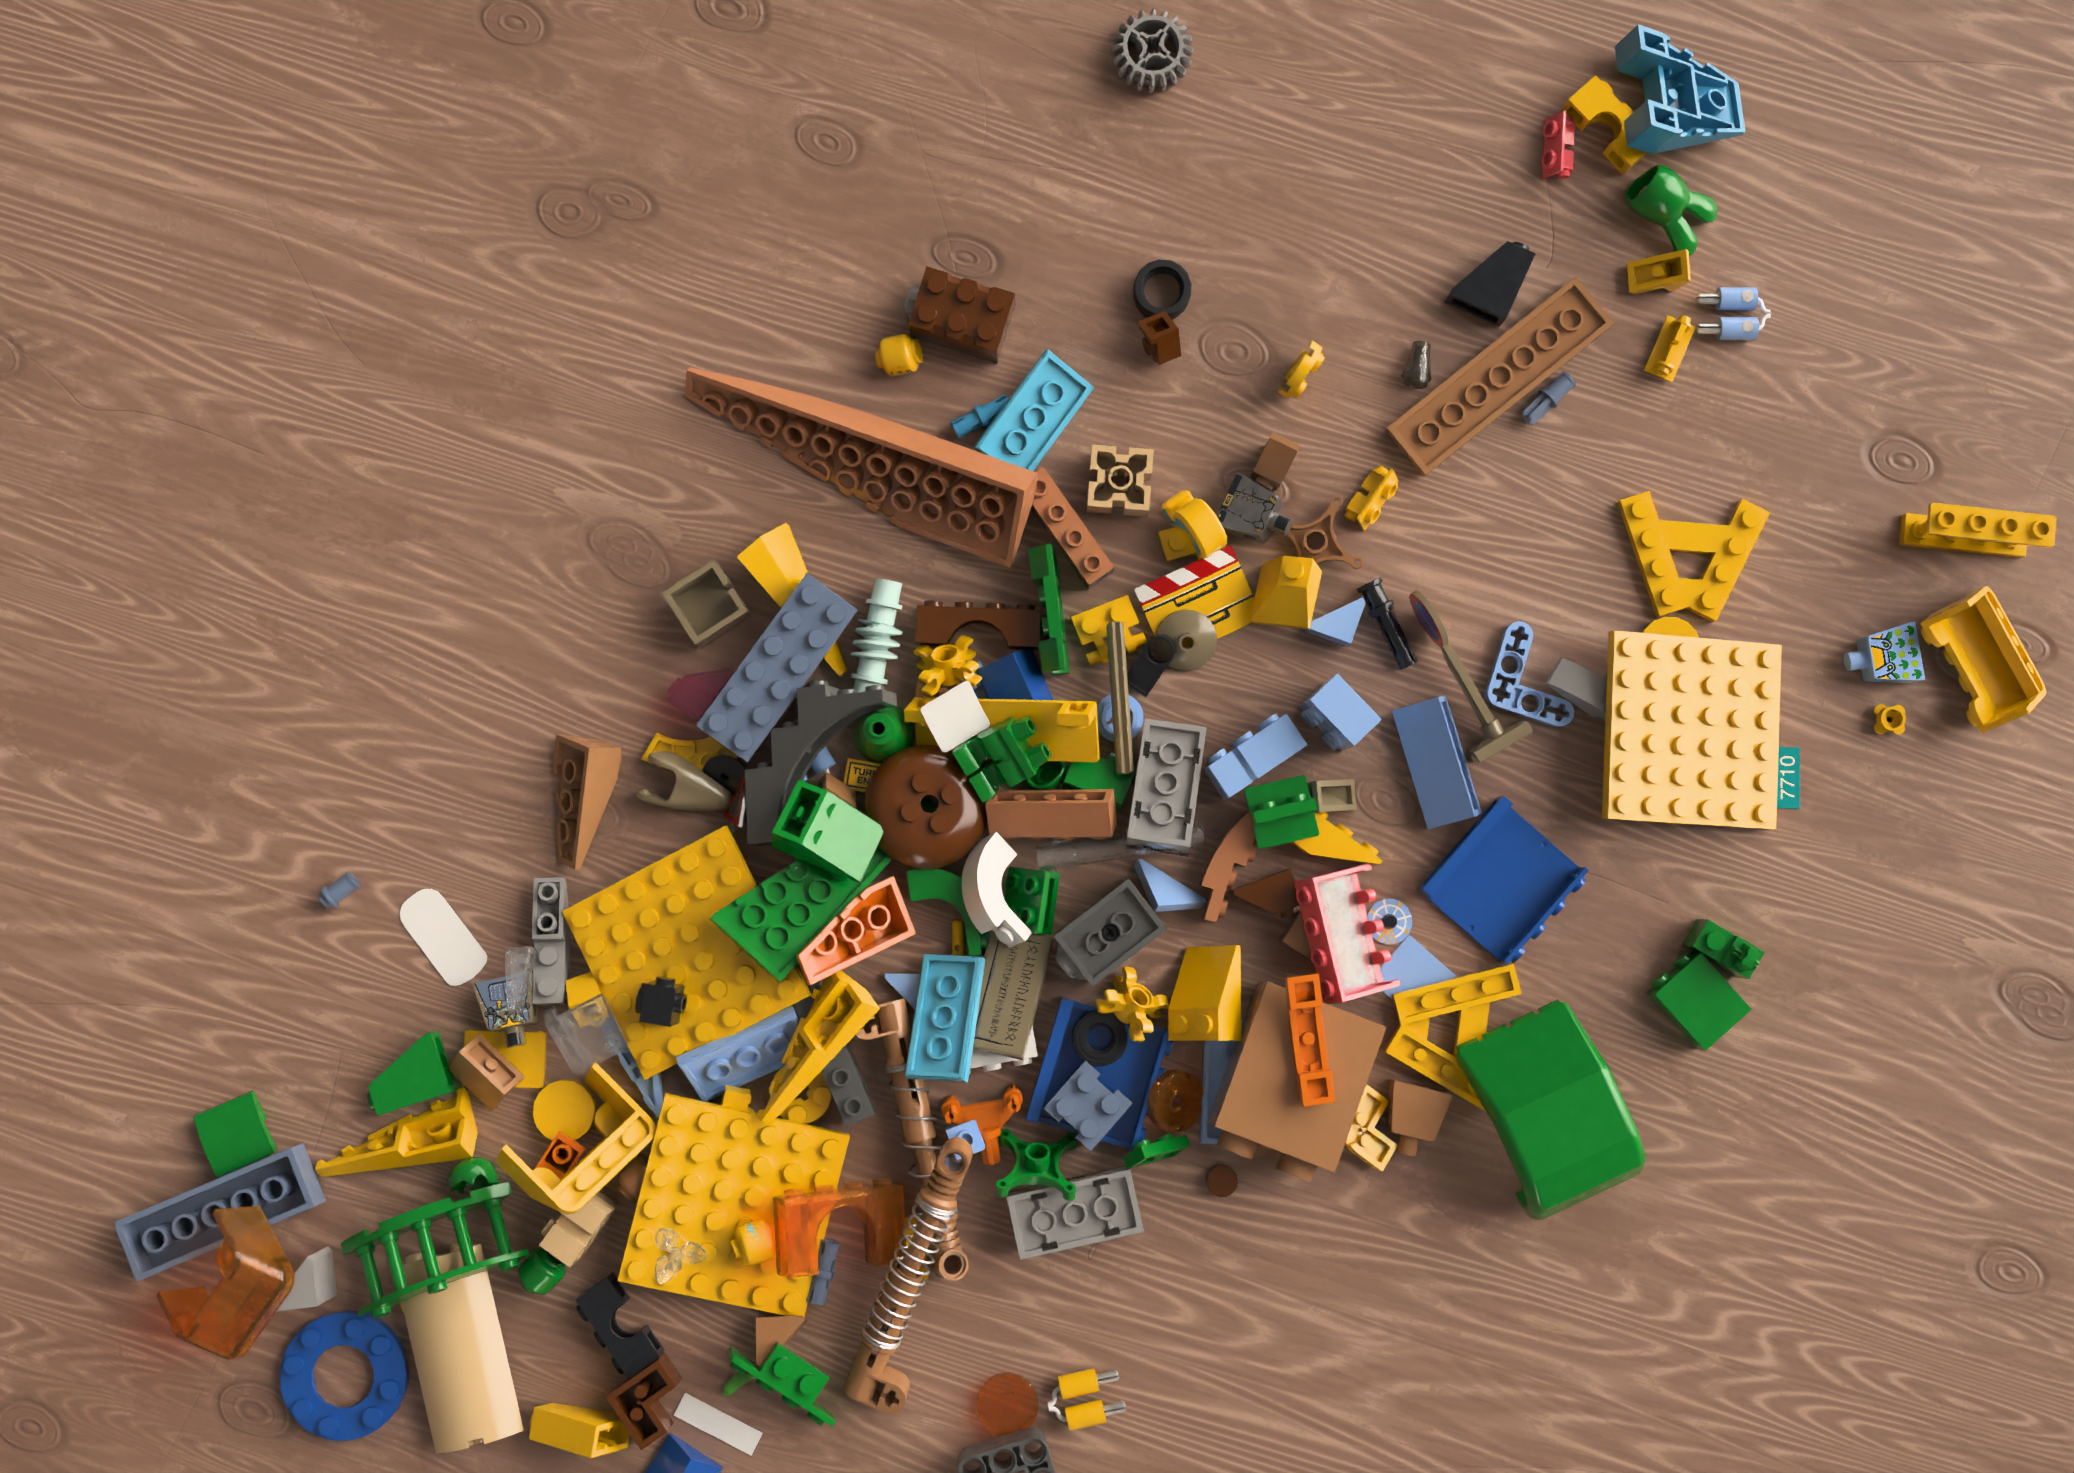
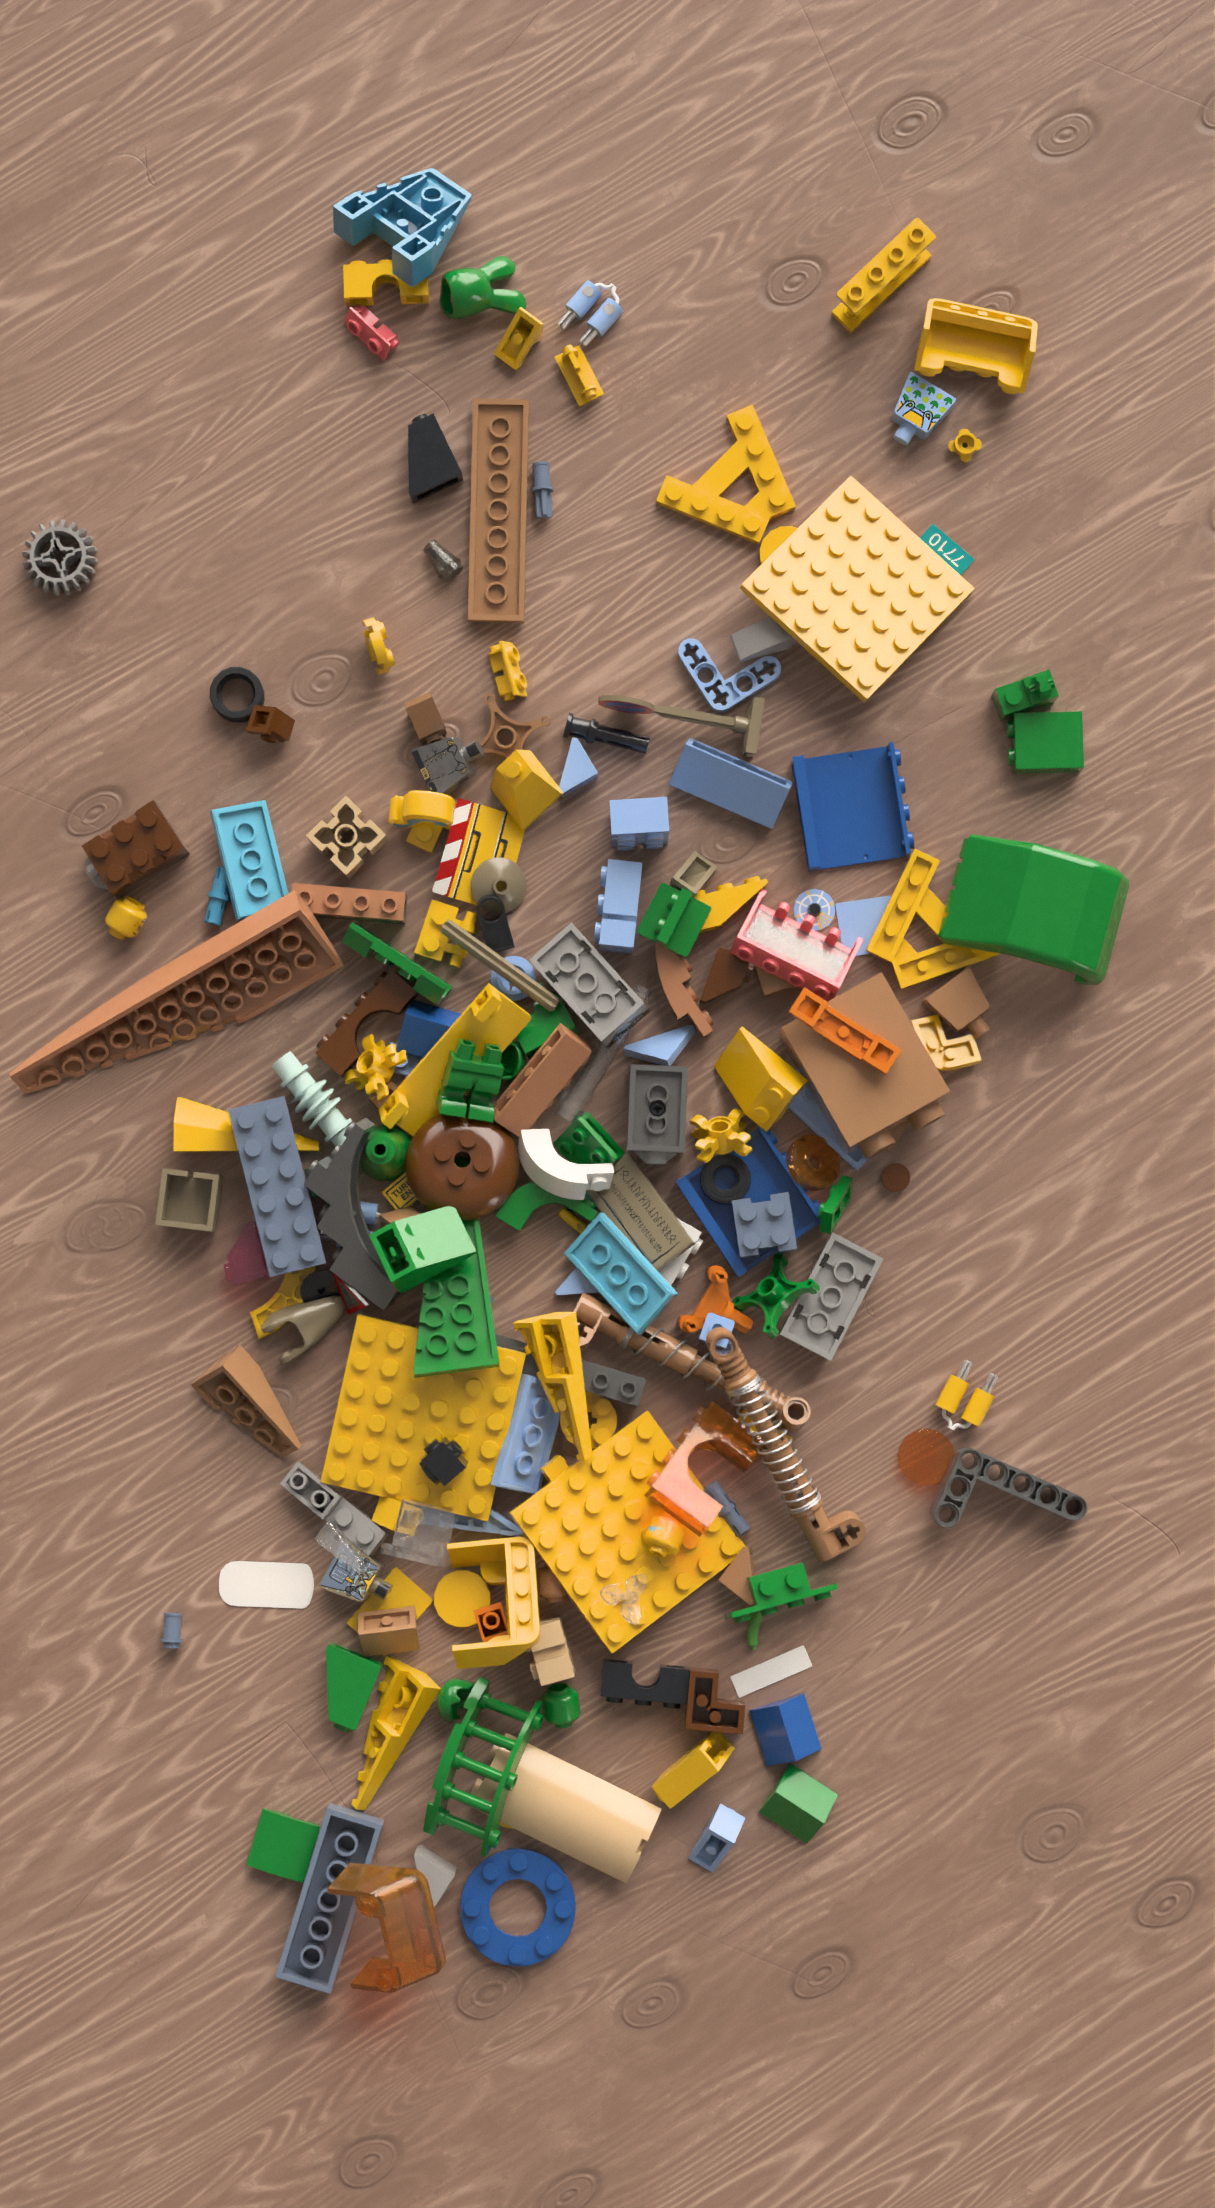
camera: 45 degrees left, 0 degrees up
(863, 928) = (510, 1279): orange wedge -> none
(955, 716) = (416, 1090): white sticker -> none

